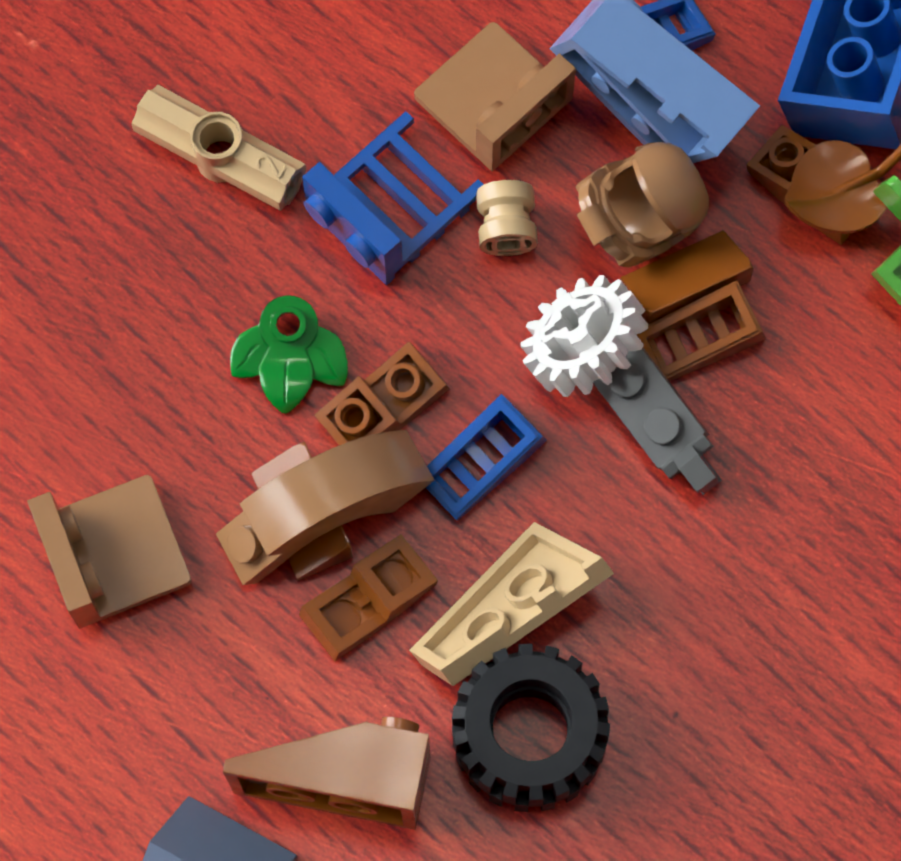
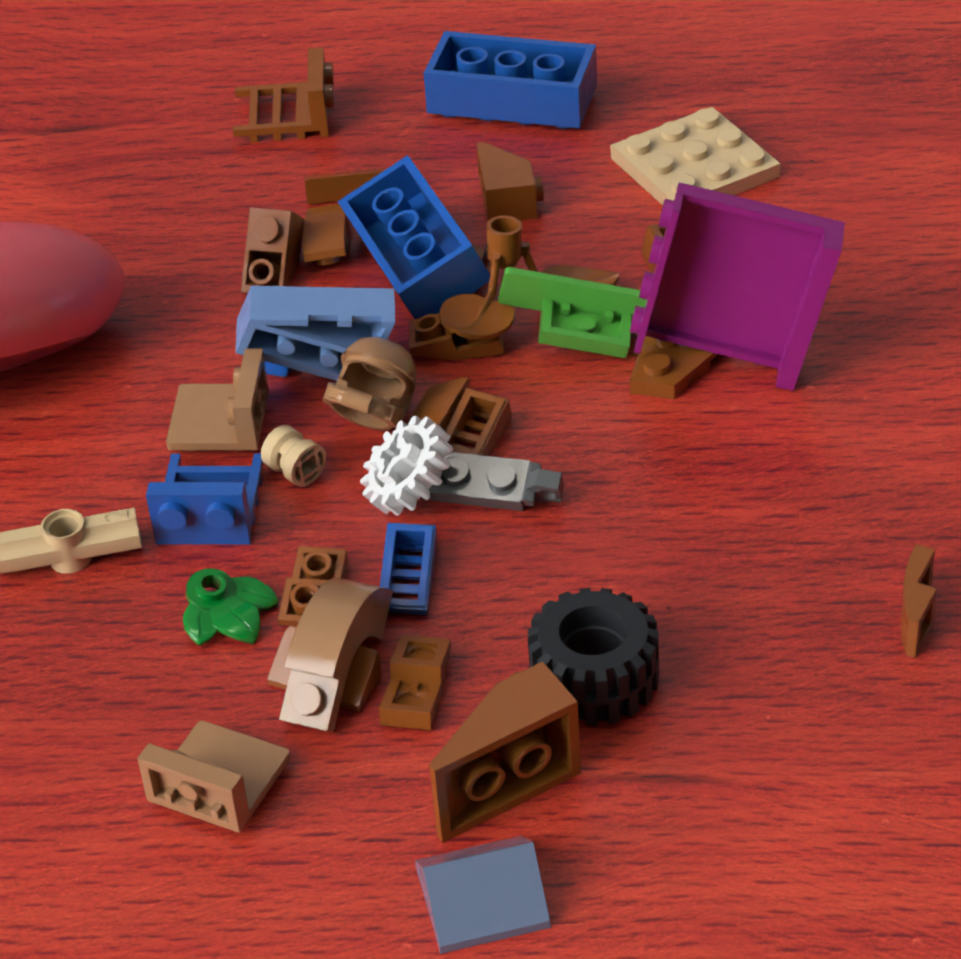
camera: 40 degrees left, 30 degrees down
(510, 600) = (504, 606): tan wing -> none

